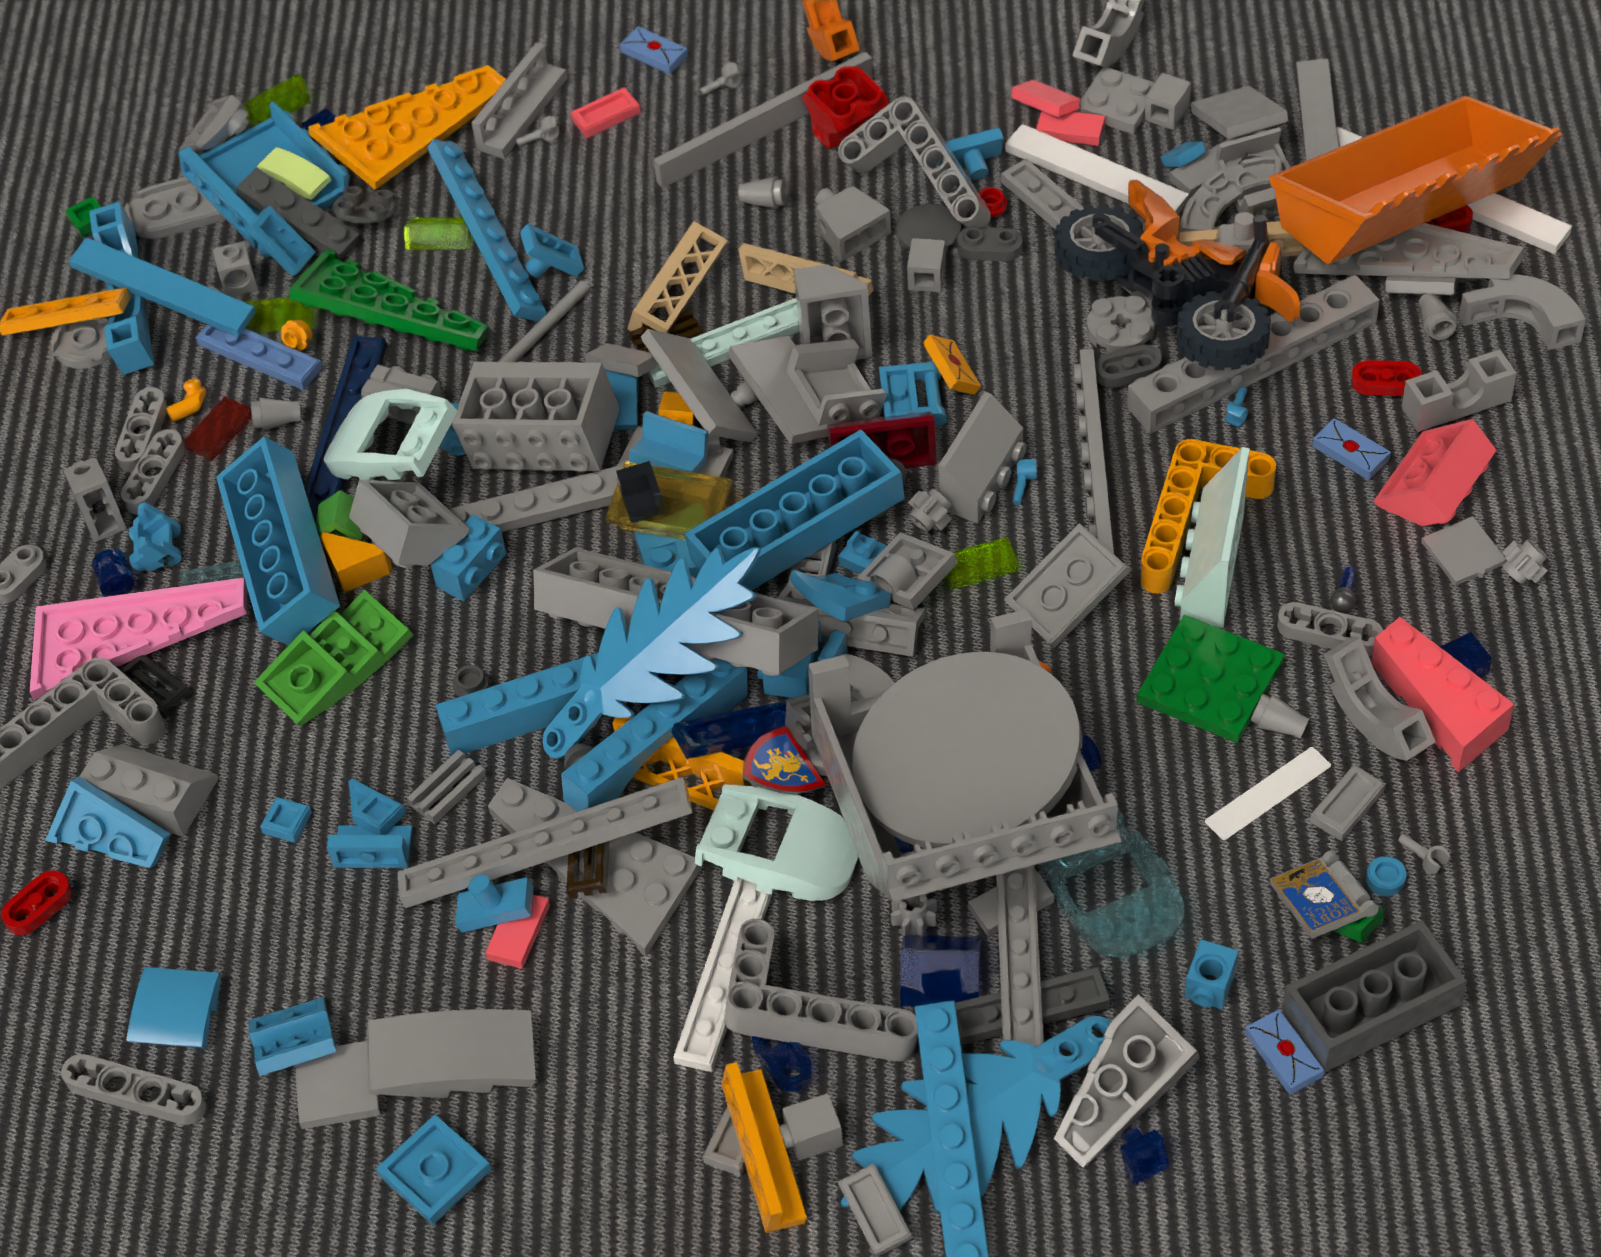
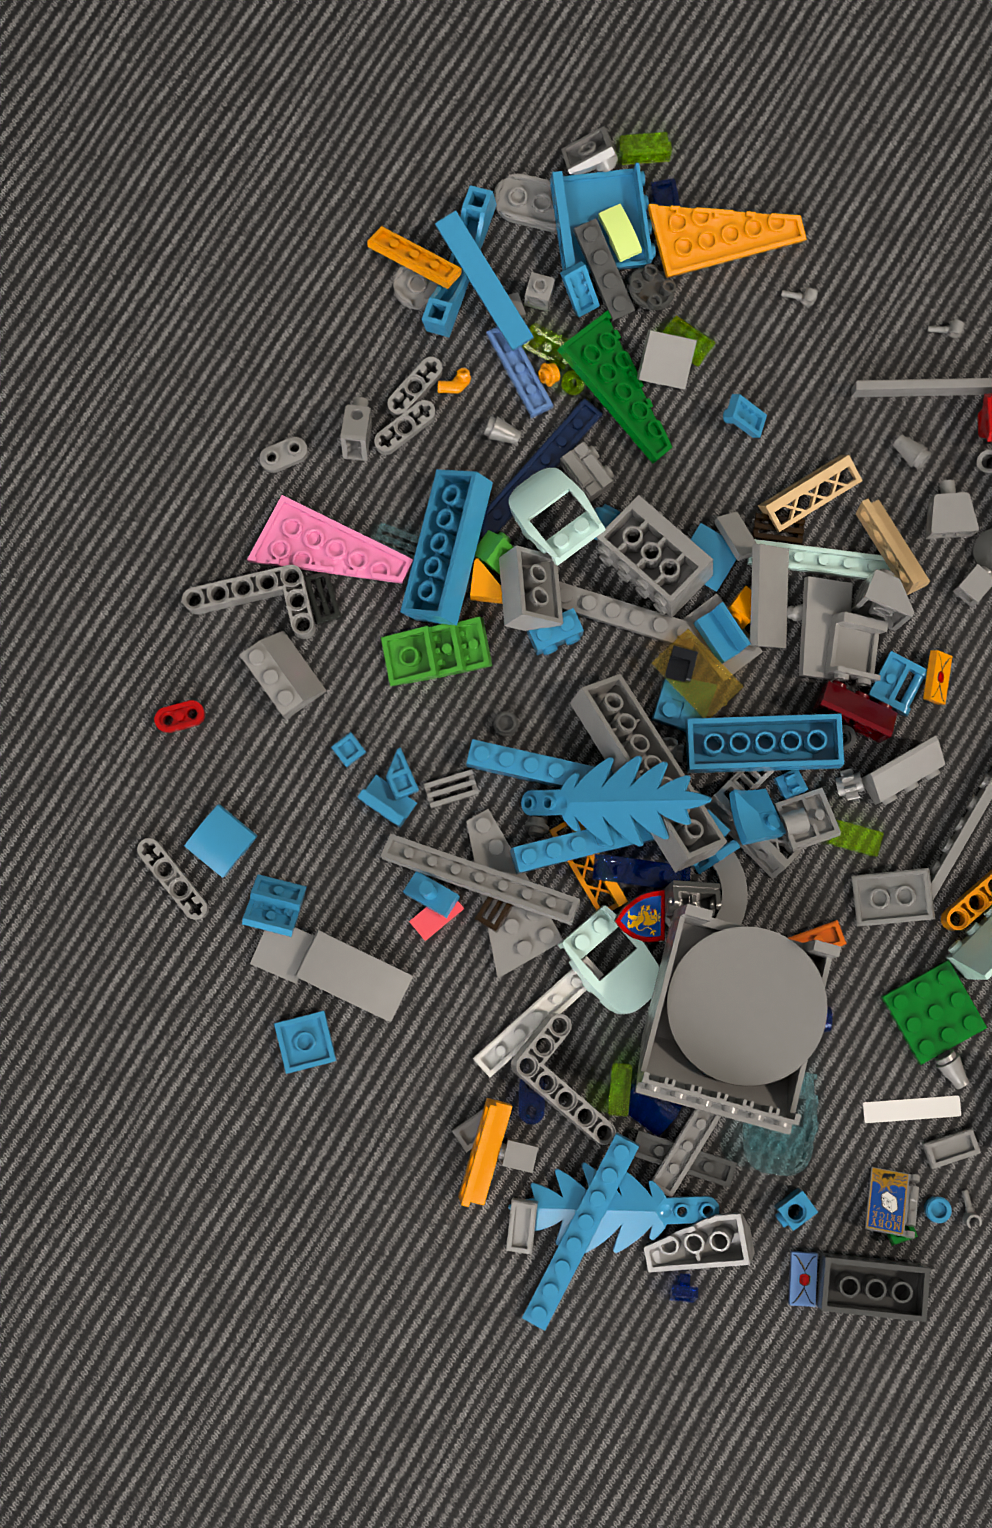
camera: 25 degrees right, 30 degrees up
(80, 217) = (470, 174): green plate -> none
(105, 825) = (240, 686): dark azure wing -> none
(112, 573) = (339, 498): clear blue wheel -> none
(152, 539) = (376, 487): dark azure piece -> none
(218, 428) = (462, 418): clear red tile -> none
(321, 328) = (568, 386): none -> clear neon green plate
(424, 250) = (666, 359): none -> light grey tile
(487, 231) = (716, 362): dark azure plate -> none
(520, 103) = (801, 262): light grey fence -> none
(546, 323) = (706, 468): light grey bar -> none
(605, 112) = (854, 305): coral tile -> none
(654, 50) = (919, 269): medium blue tile -> none
(886, 970) = (620, 1089): none -> clear neon green slope
(1025, 471) = (927, 788): dark azure hand -> none

